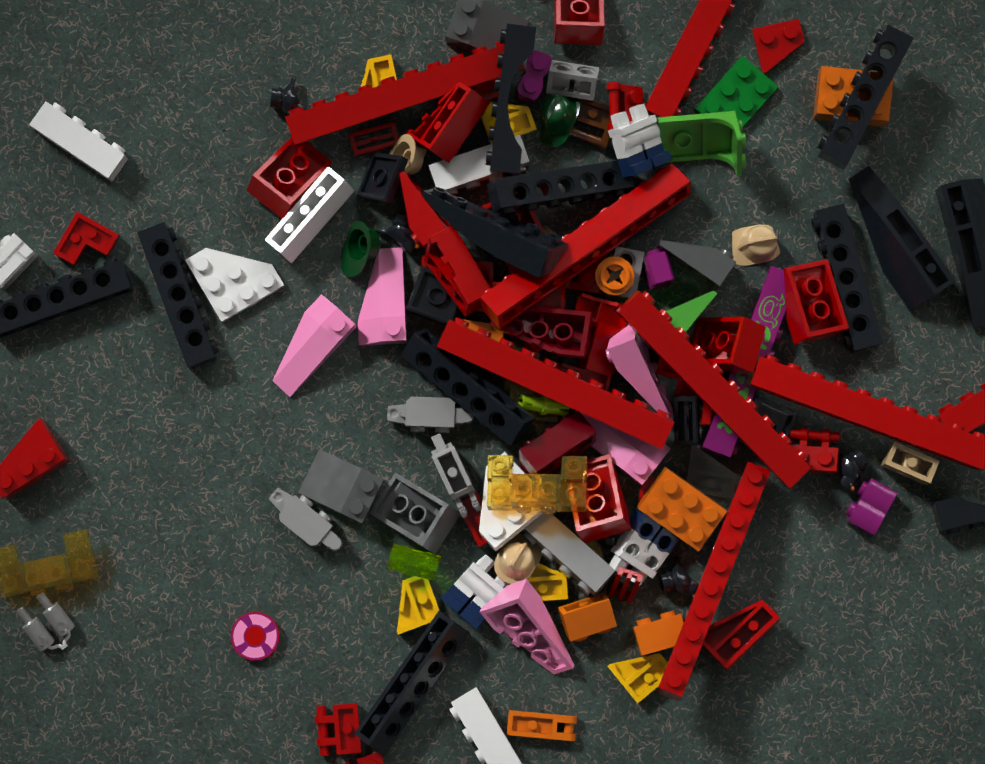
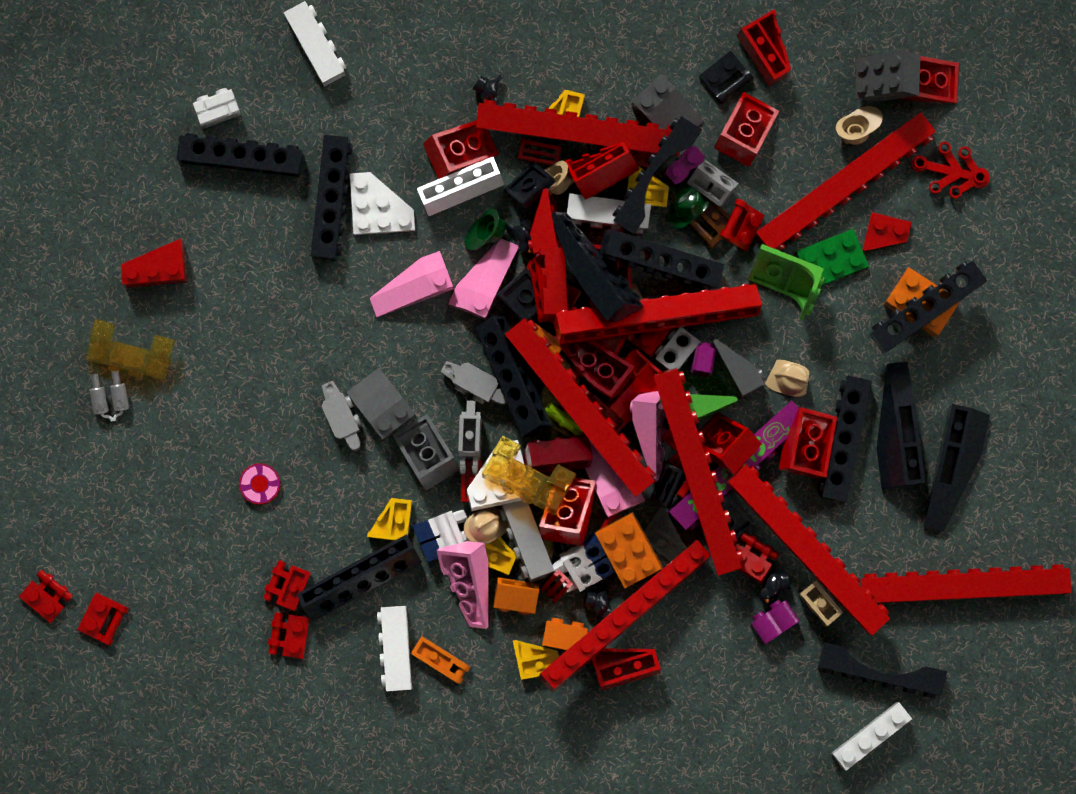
camera: 30 degrees right, 0 degrees up
(84, 232) = (285, 115): red plate -> none
(413, 562) = (406, 488): clear neon green bracket -> none
(614, 264) = (659, 343): orange gear -> none
(637, 141) = (737, 255): white hips -> none

